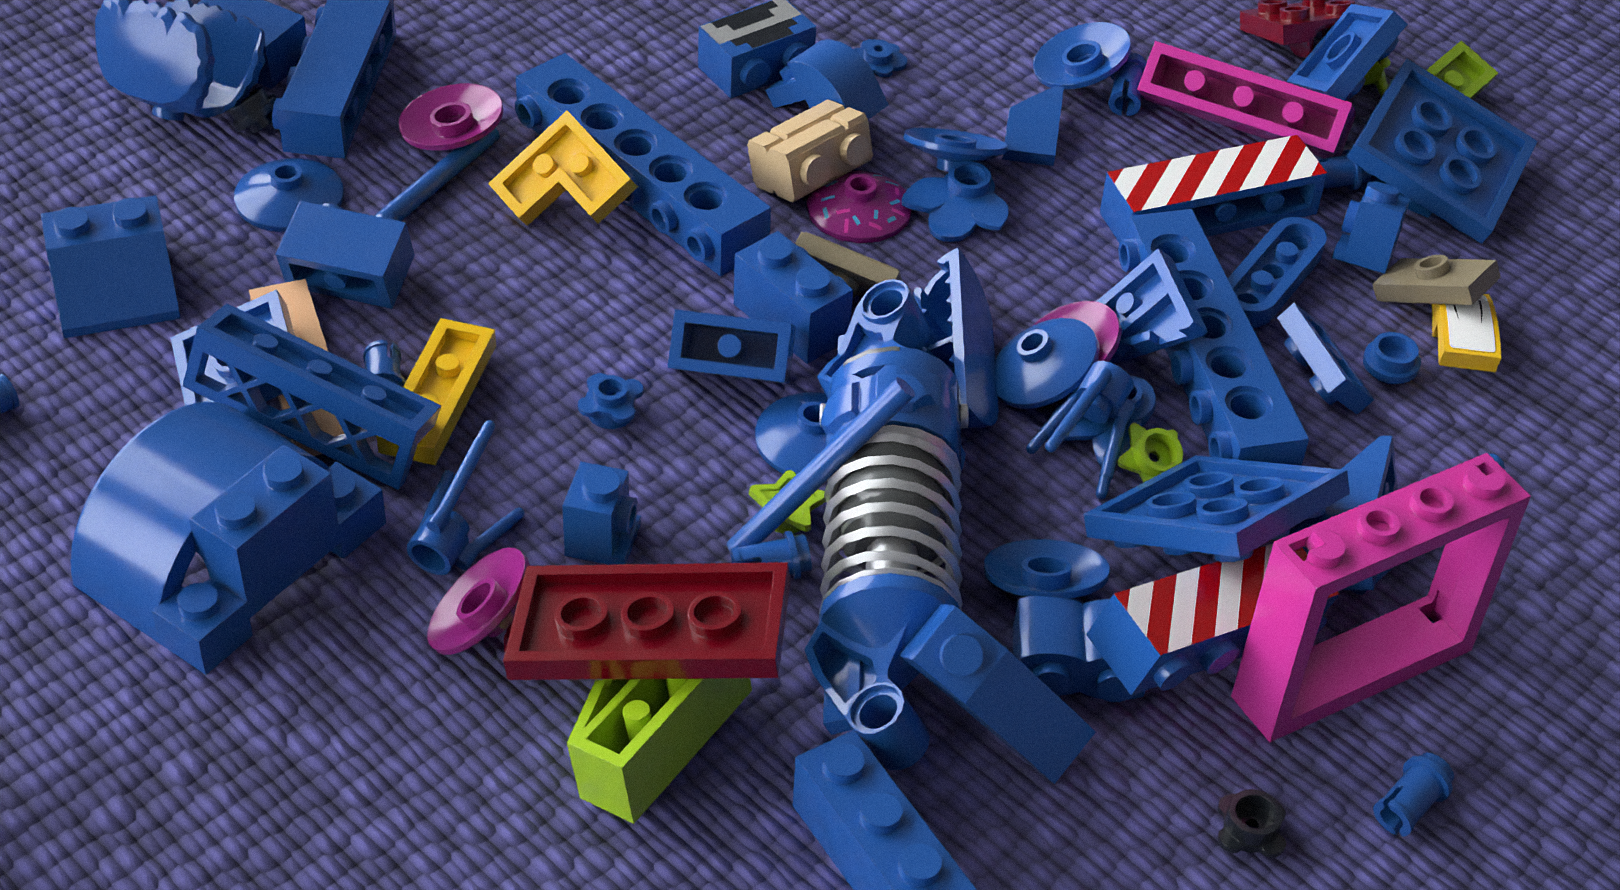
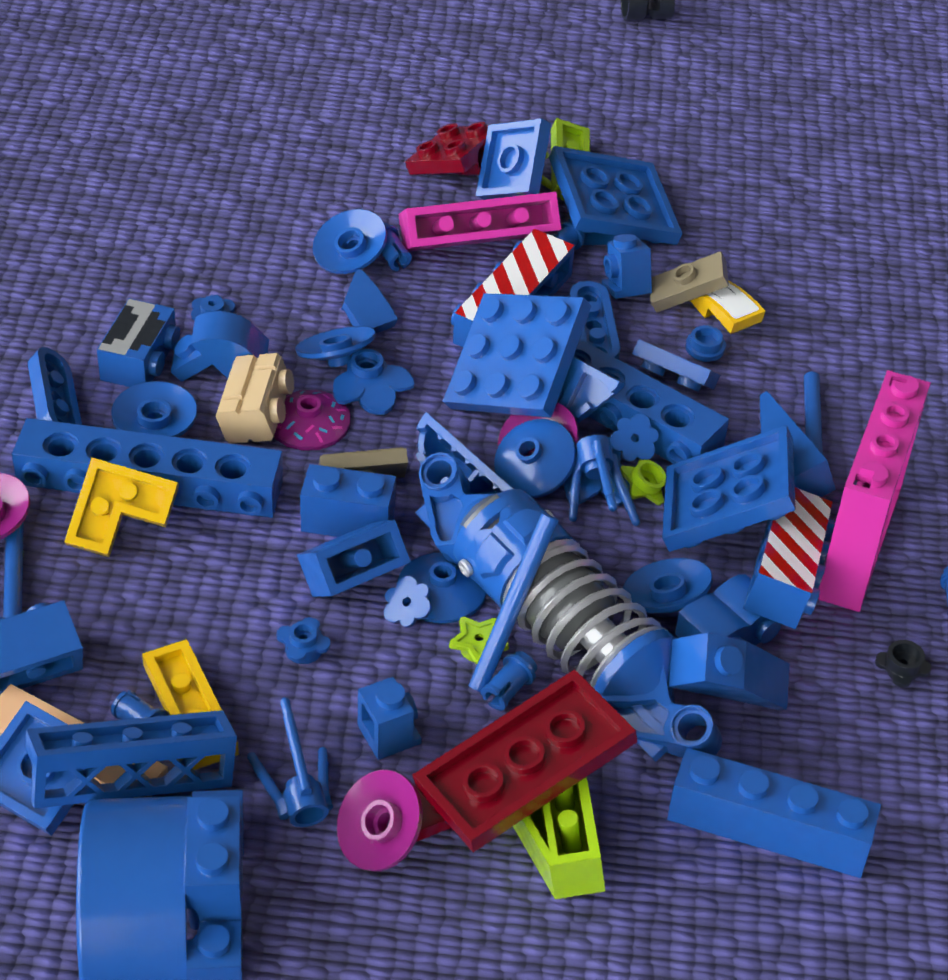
camera: 40 degrees left, 0 degrees up
(632, 46) = (53, 387): none -> blue plate
(703, 113) = (155, 409): none -> blue dish
(752, 424) = (398, 599): none -> plant
(1118, 239) = (517, 354): none -> plate
(1159, 397) = (645, 437): none -> blue plant

